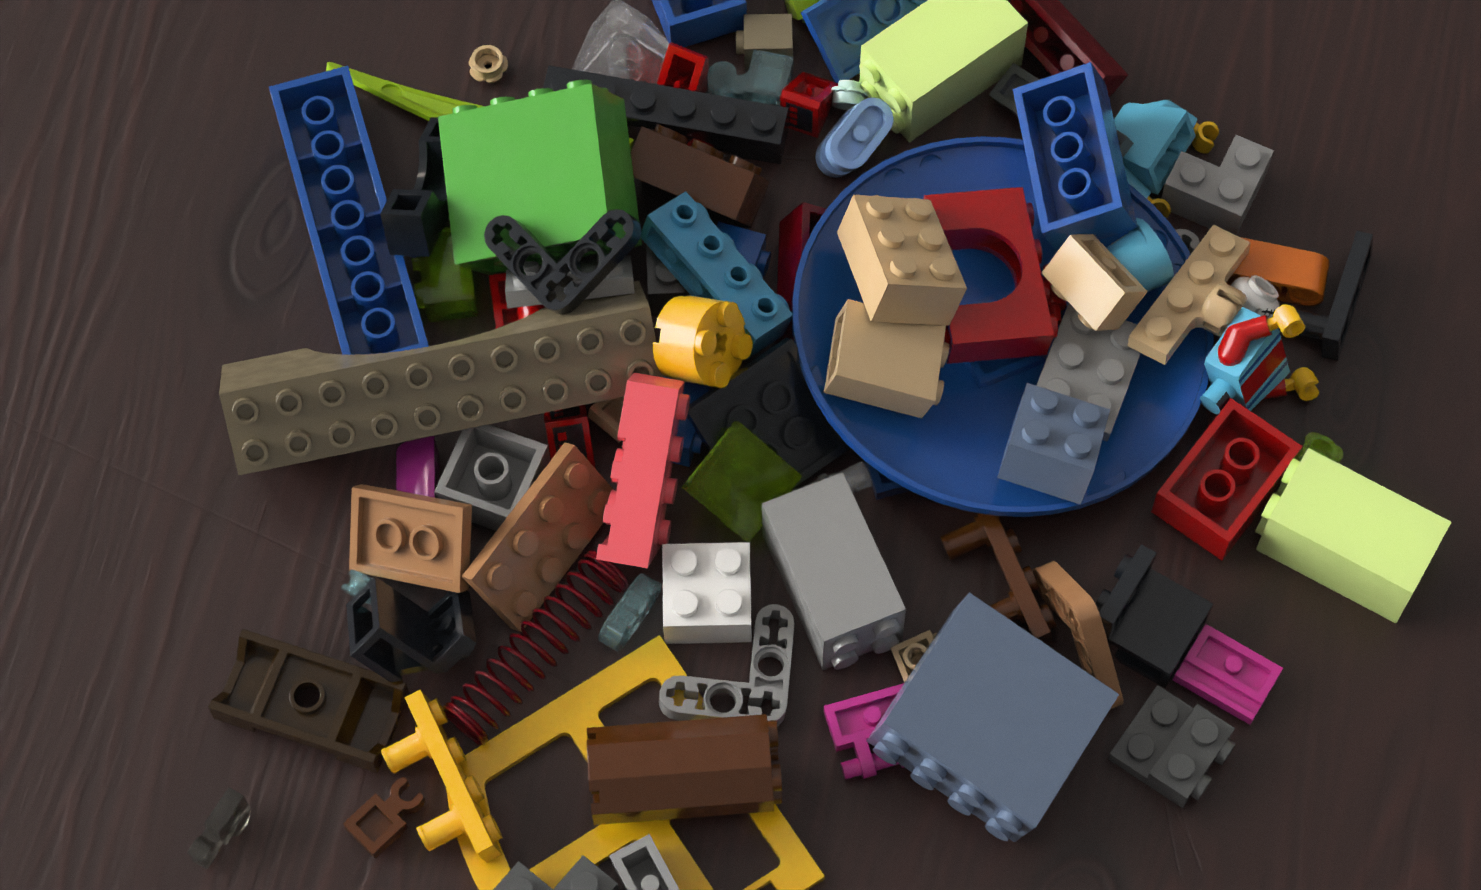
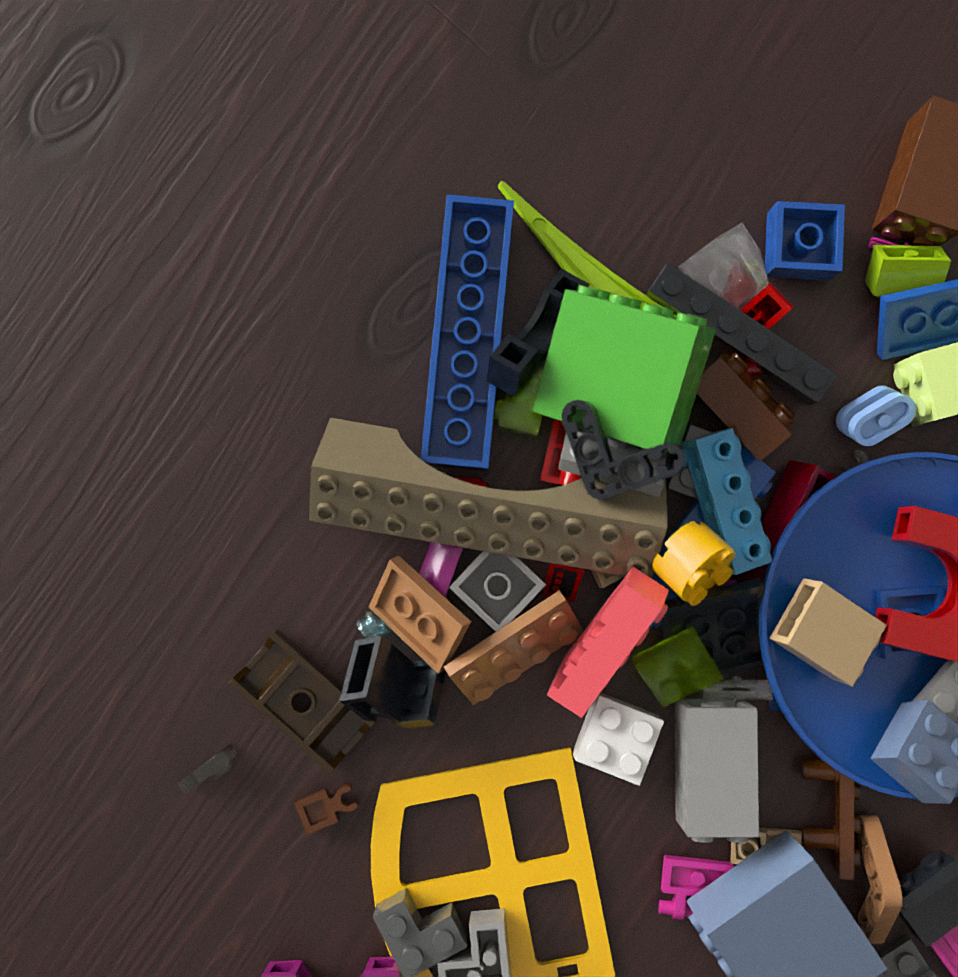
camera: 25 degrees right, 20 degrees up
(465, 792) = (384, 789): yellow plate -> none
(487, 55) = (624, 225): tan plate -> none
(614, 579) = (409, 765): dark red piece -> none
(630, 612) = (553, 728): clear light blue beam -> none
(683, 769) = (548, 878): reddish brown brick -> none
(759, 686) = (625, 820): light grey beam -> none
(762, 82) = (821, 342): clear light blue brick -> none
(765, 33) = (841, 302): dark tan brick -> none
(807, 102) = (853, 365): red slope -> none
(847, 94) = (884, 373): light aqua plate -> none
(901, 260) = (877, 563): tan brick -> none

